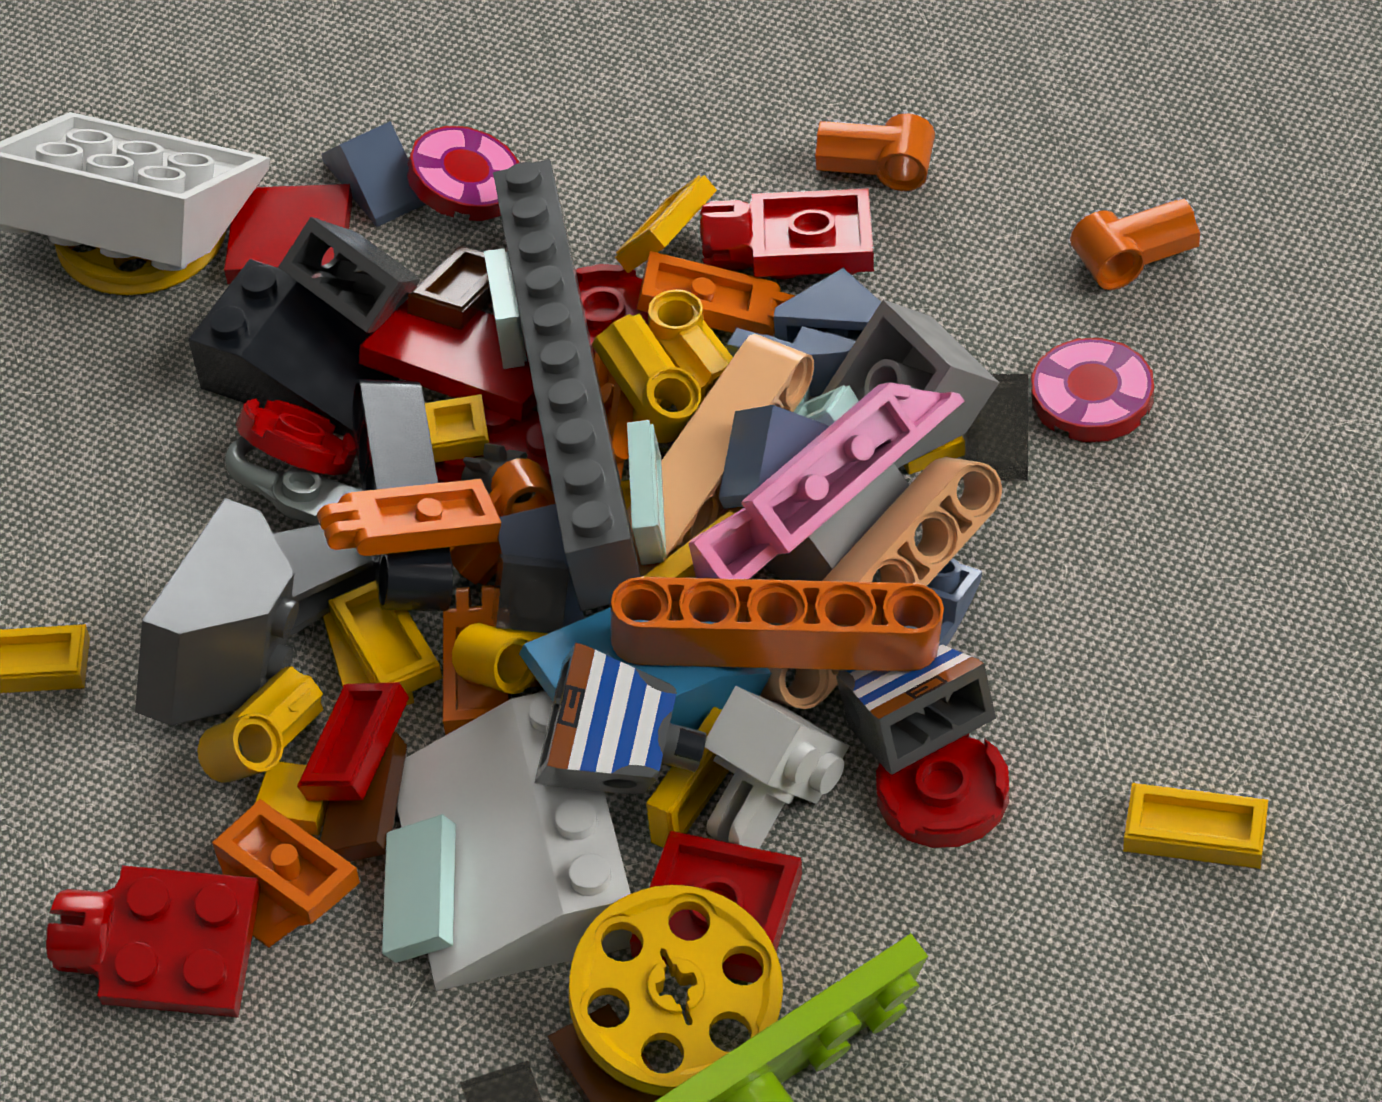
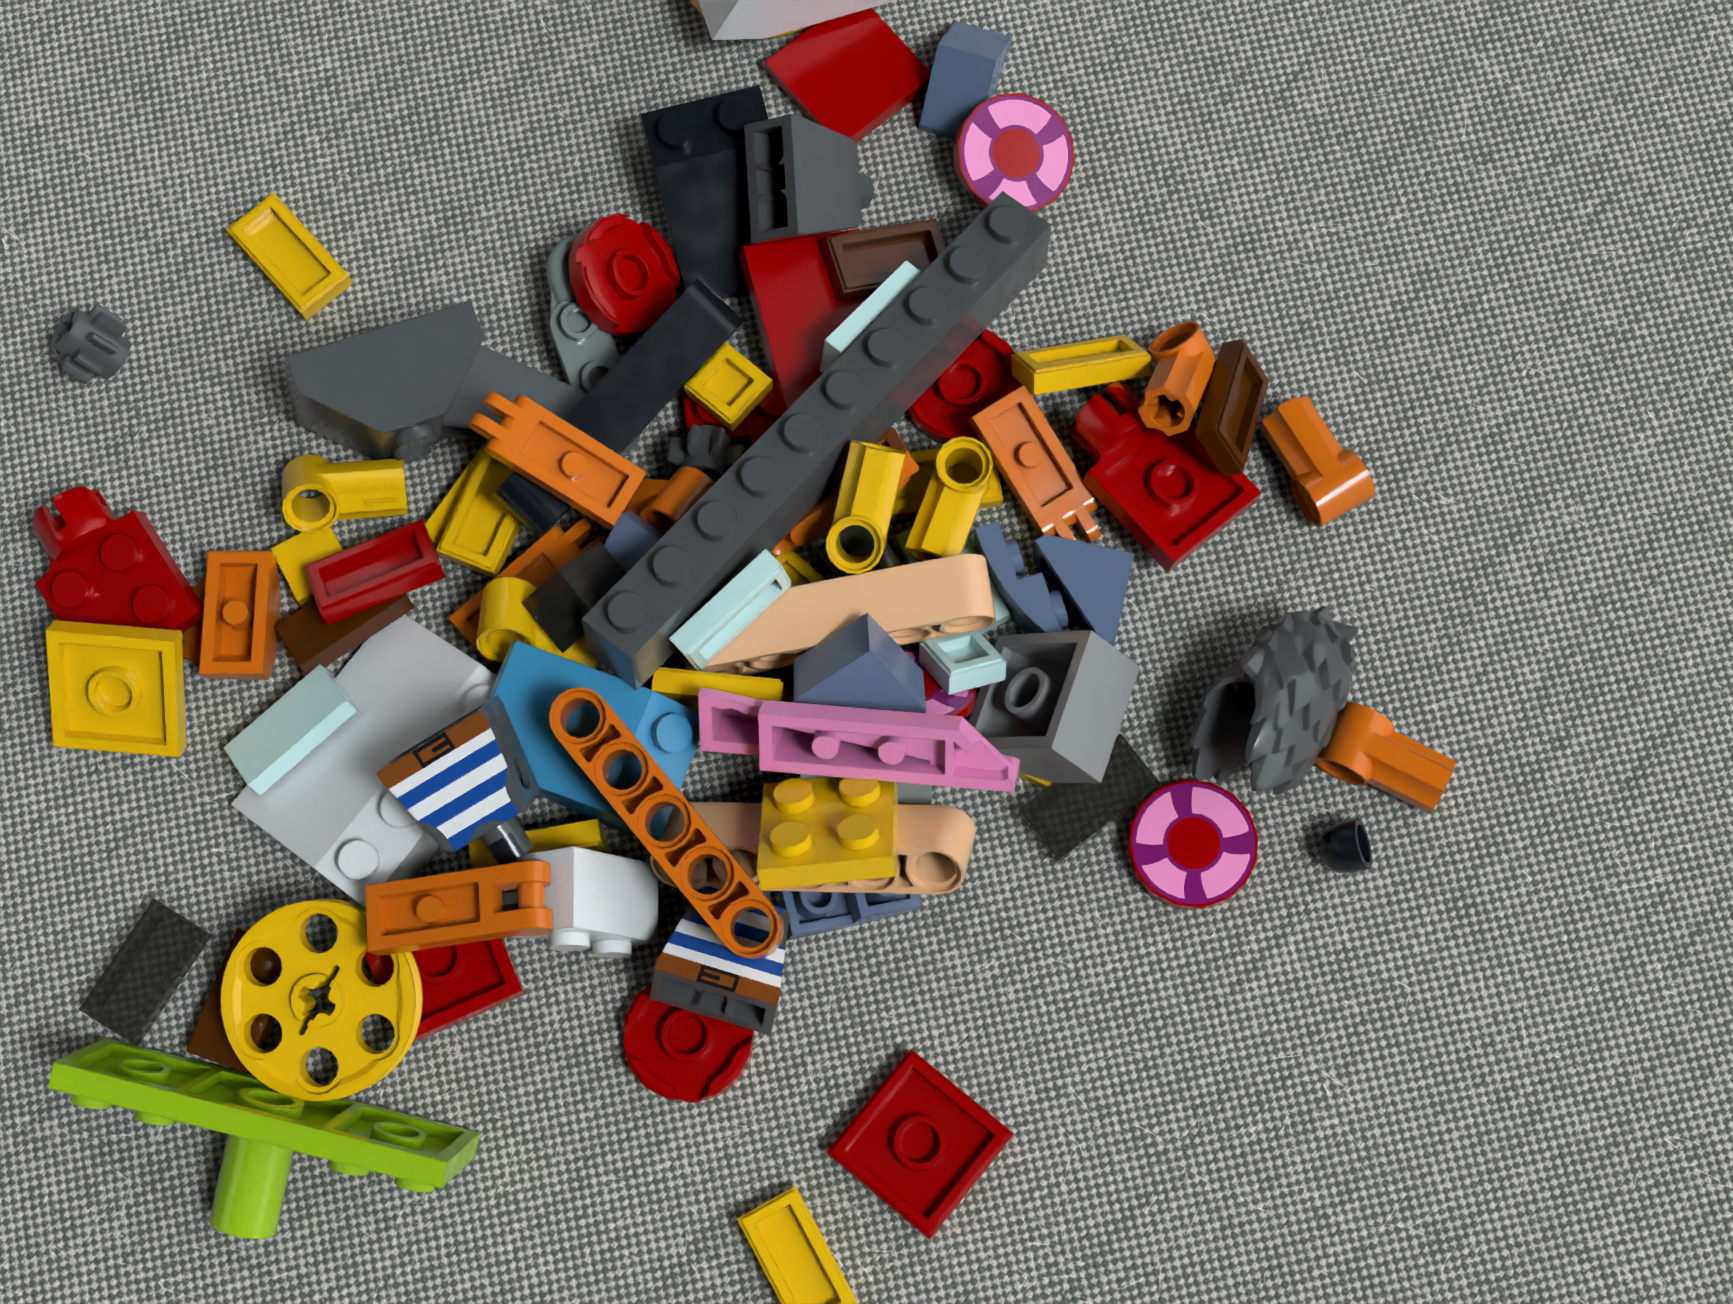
camera: 50 degrees right, 25 degrees up
(258, 979) = (116, 688): none -> yellow plate
(706, 802) = (457, 908): none -> orange plate
(738, 168) = (1180, 378): none -> orange piece
(791, 157) = (1232, 407): none -> reddish brown tile
(882, 529) = (827, 831): none -> yellow plate
(1034, 257) = (1276, 702): none -> dark grey head
(1170, 690) = (920, 1144): none -> red tile
(1180, 301) = (1346, 847): none -> black hinge

